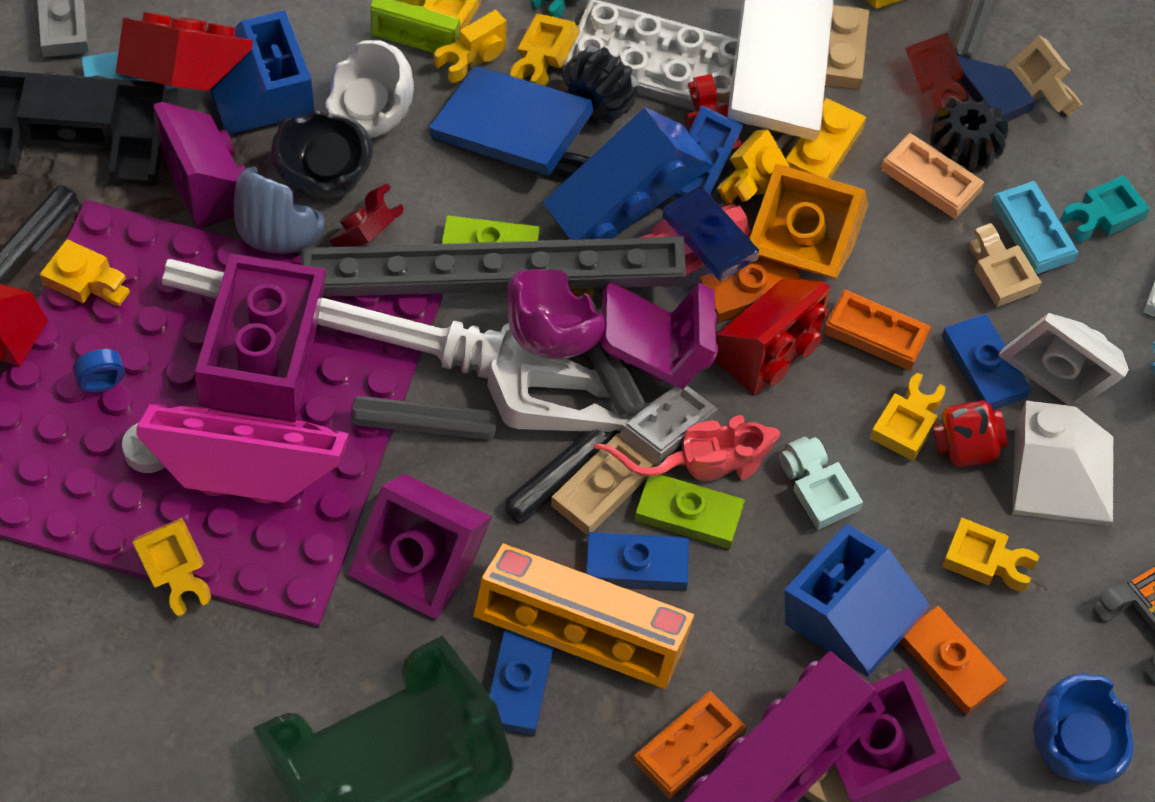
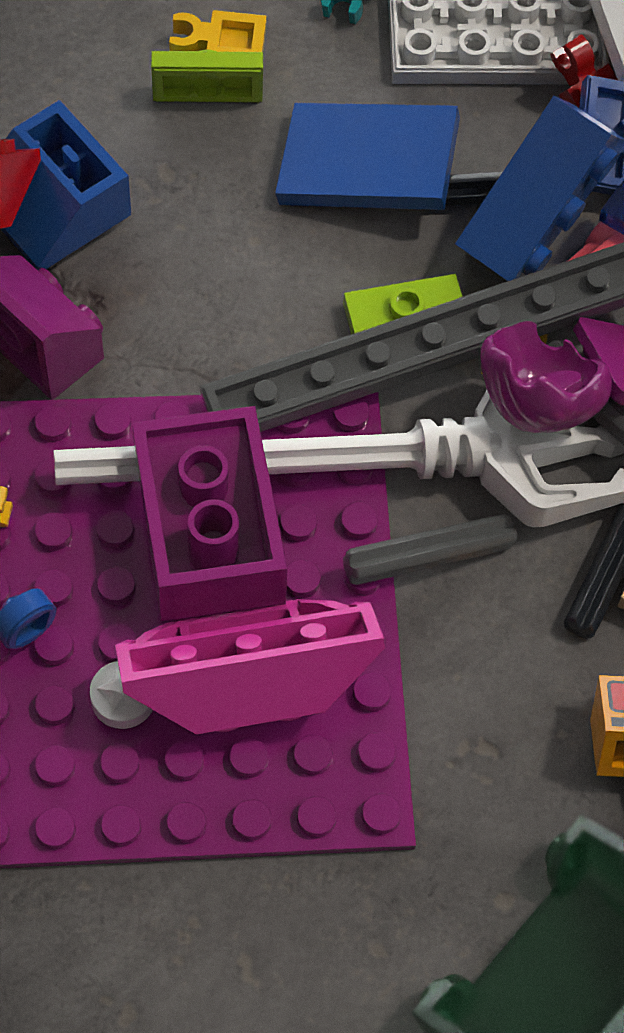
camera: 20 degrees left, 5 degrees up
(171, 557) = (216, 830): yellow plate -> none
(270, 219) = (149, 357): sand blue piece -> none
(321, 154) = (174, 263): black piece -> none
(364, 225) = (259, 333): dark red plate -> none
(372, 87) = (195, 168): white piece -> none
(418, 544) = (496, 708): magenta slope -> none
(477, 44) = (289, 74): yellow plate -> none
(543, 46) = (365, 55): yellow plate -> none
(603, 80) = (456, 77): black gear -> none

